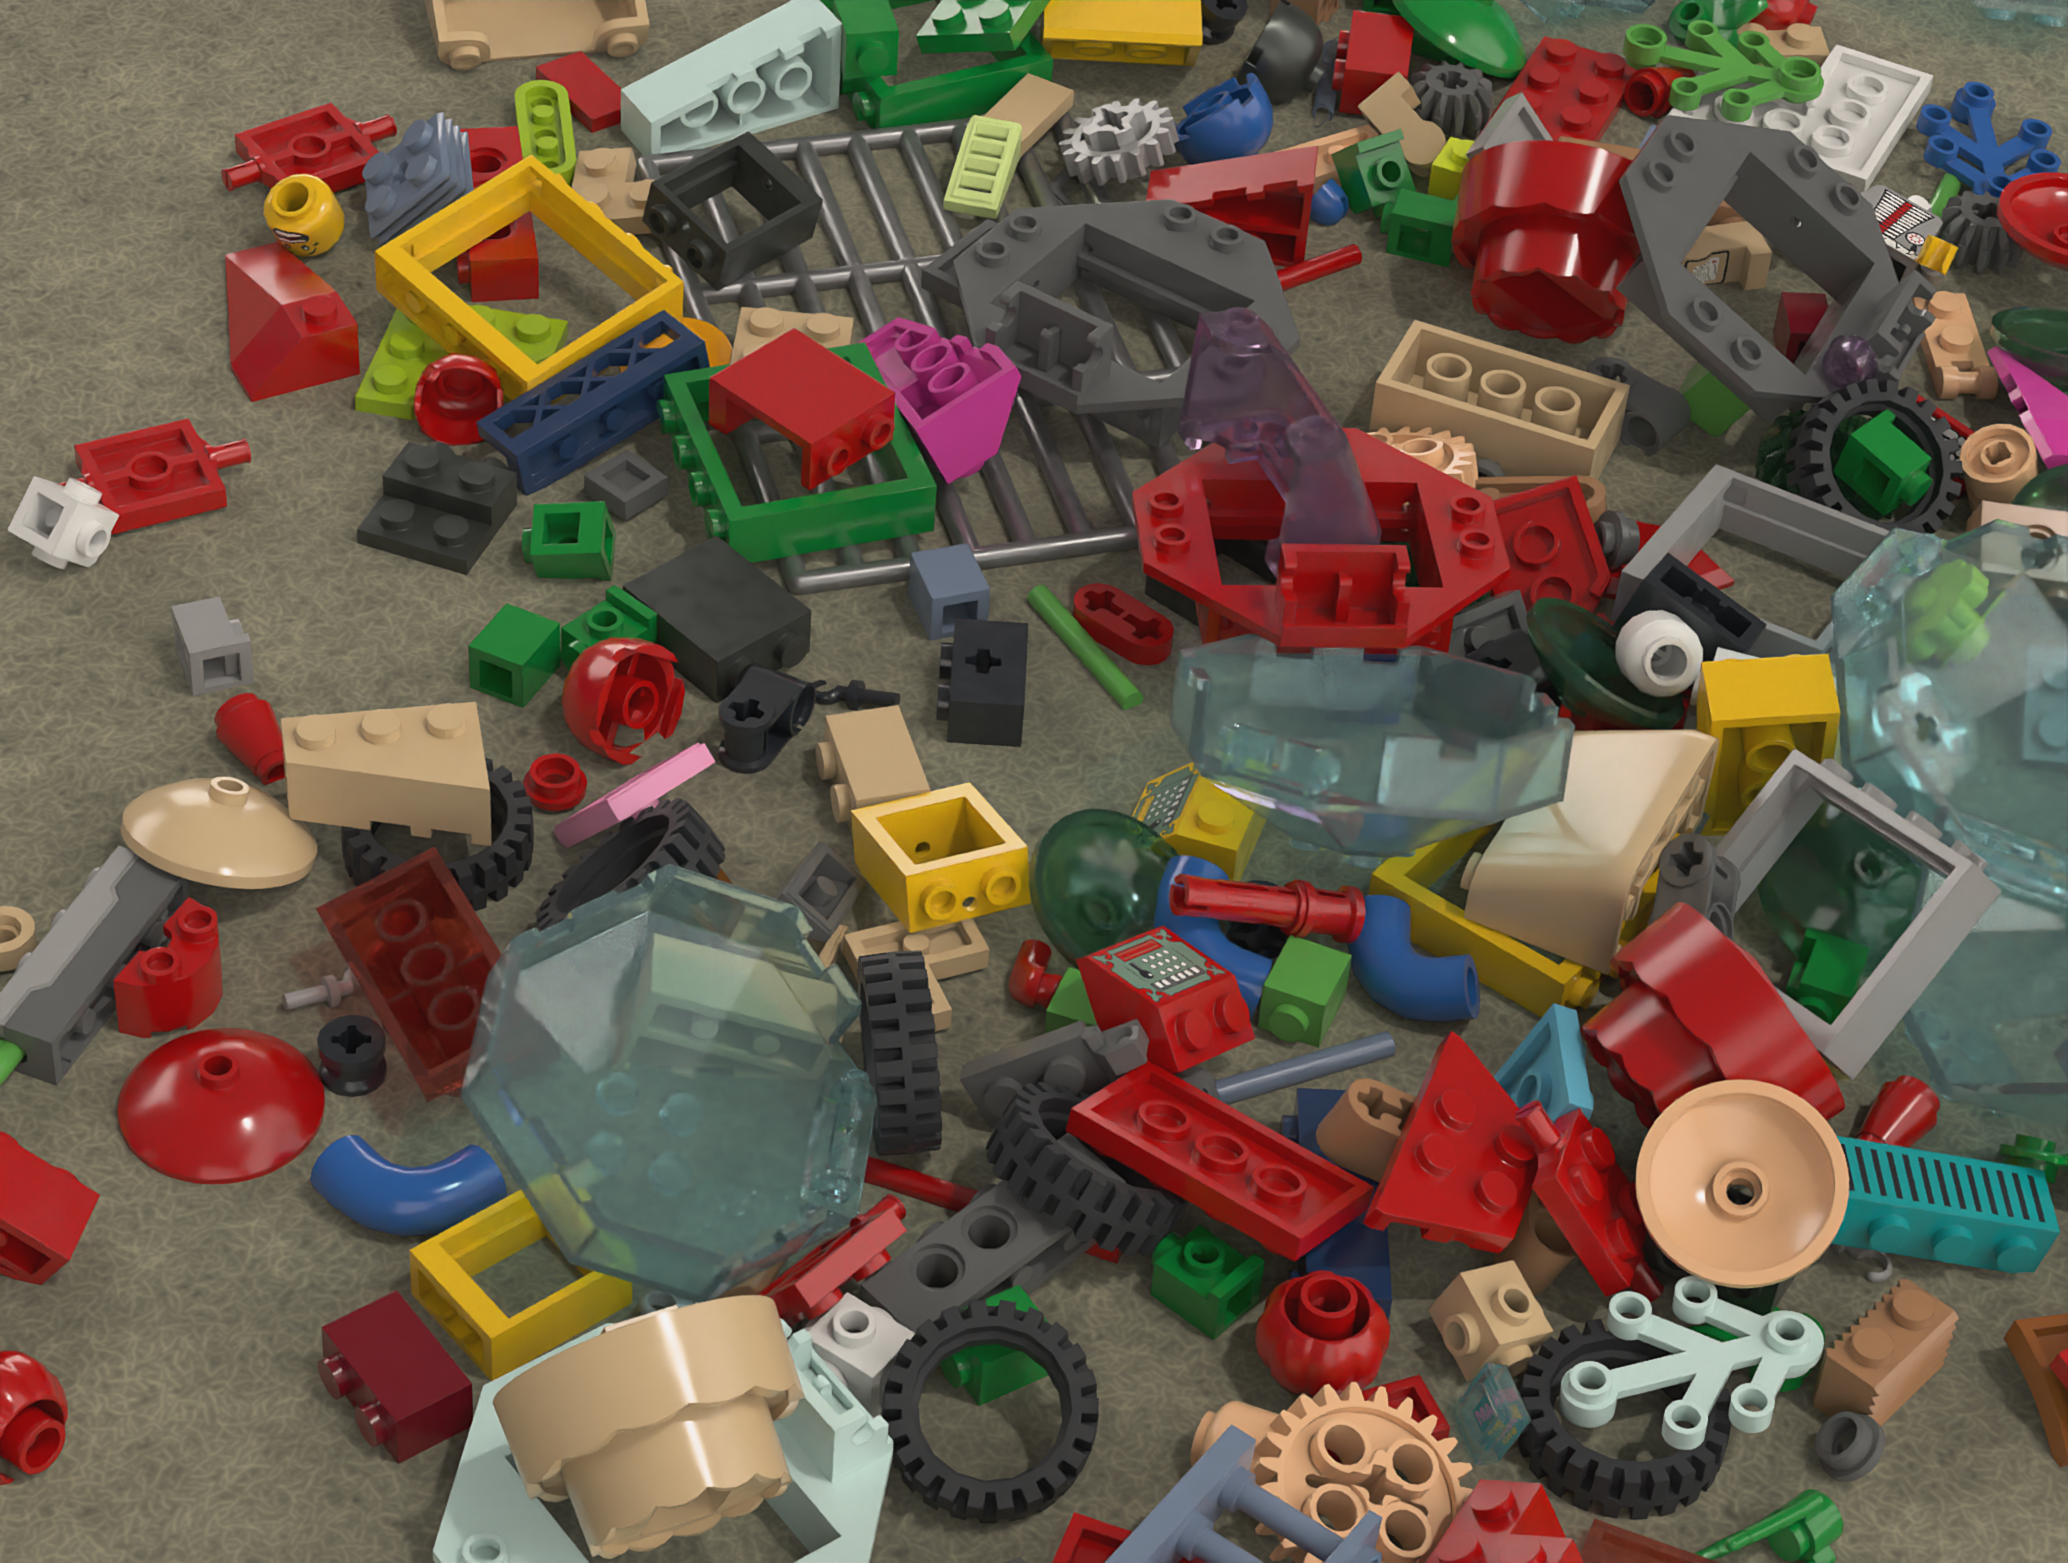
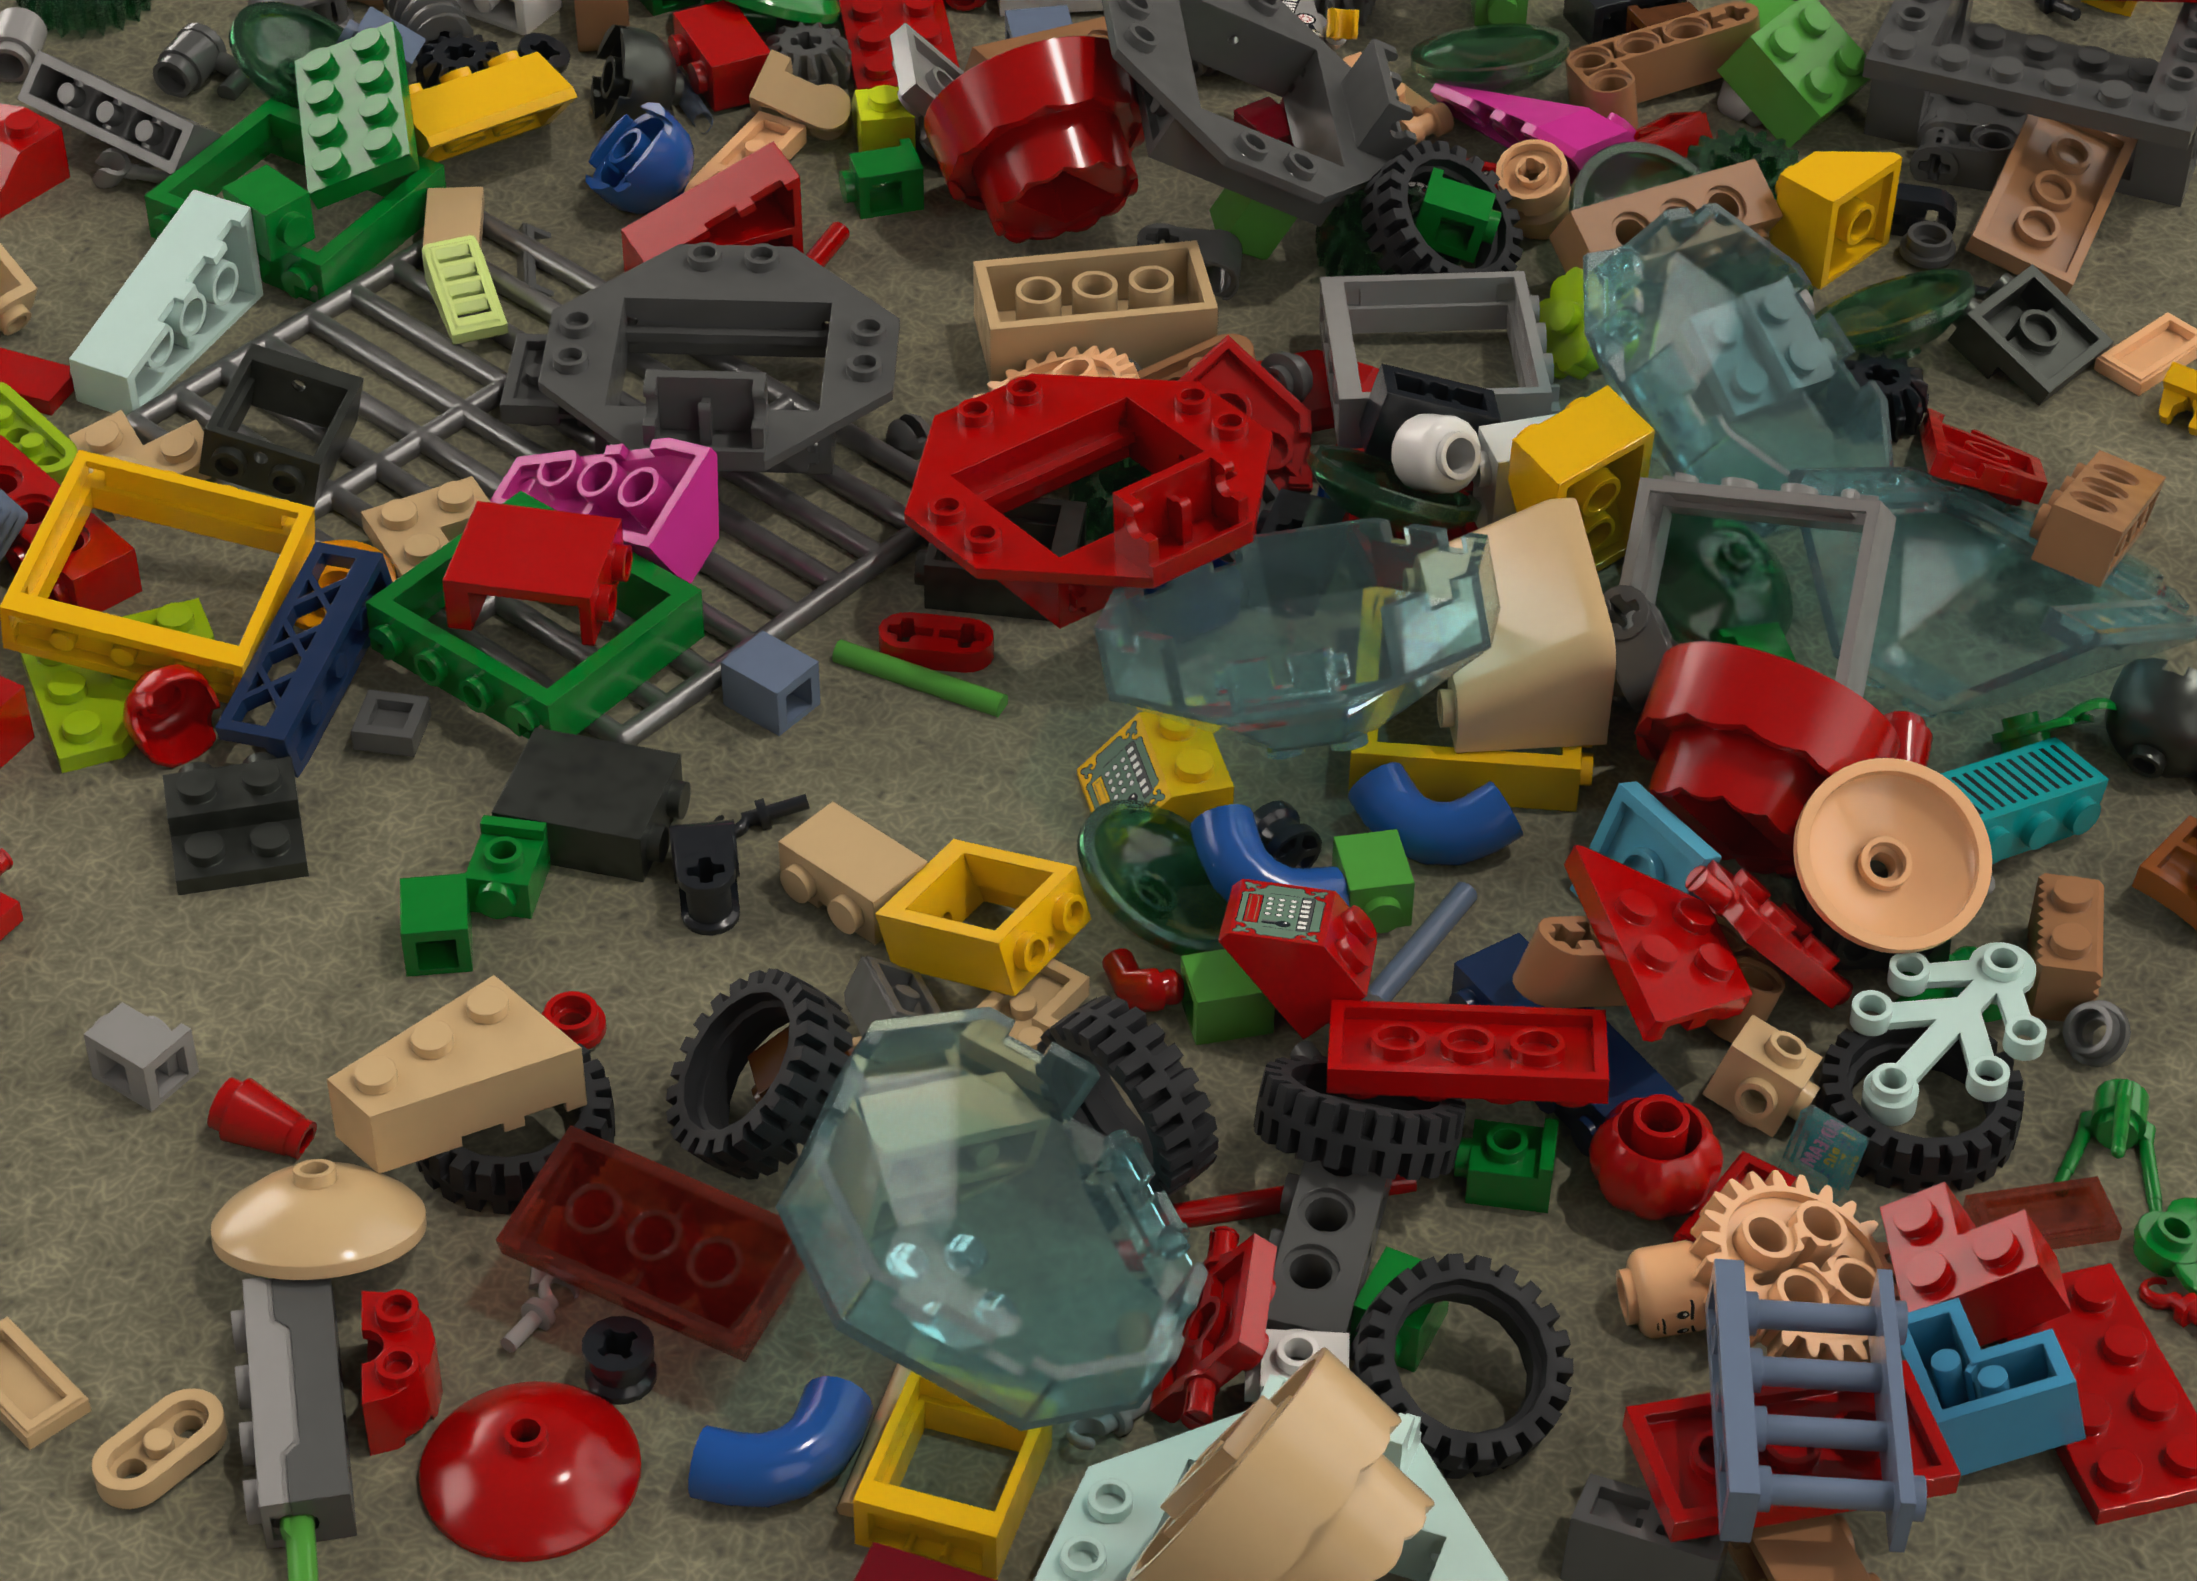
camera: 30 degrees left, 0 degrees up
(570, 541) = (396, 781): green brick -> none
(625, 685) = (567, 905): red cylinder -> none
(633, 795) = (672, 996): bright pink plate -> none
(986, 682) = (875, 747): black brick -> none
(1066, 1057) = (1265, 1030): dark grey hinge -> none
(1119, 141) = (569, 215): light grey gear -> none
(1263, 409) = (1001, 381): clear purple windscreen -> none
(1293, 908) = (1323, 812): red pin -> none
(1373, 172) = (811, 148): green brick -> none
(1849, 361) = (1374, 152): clear purple plate -> none

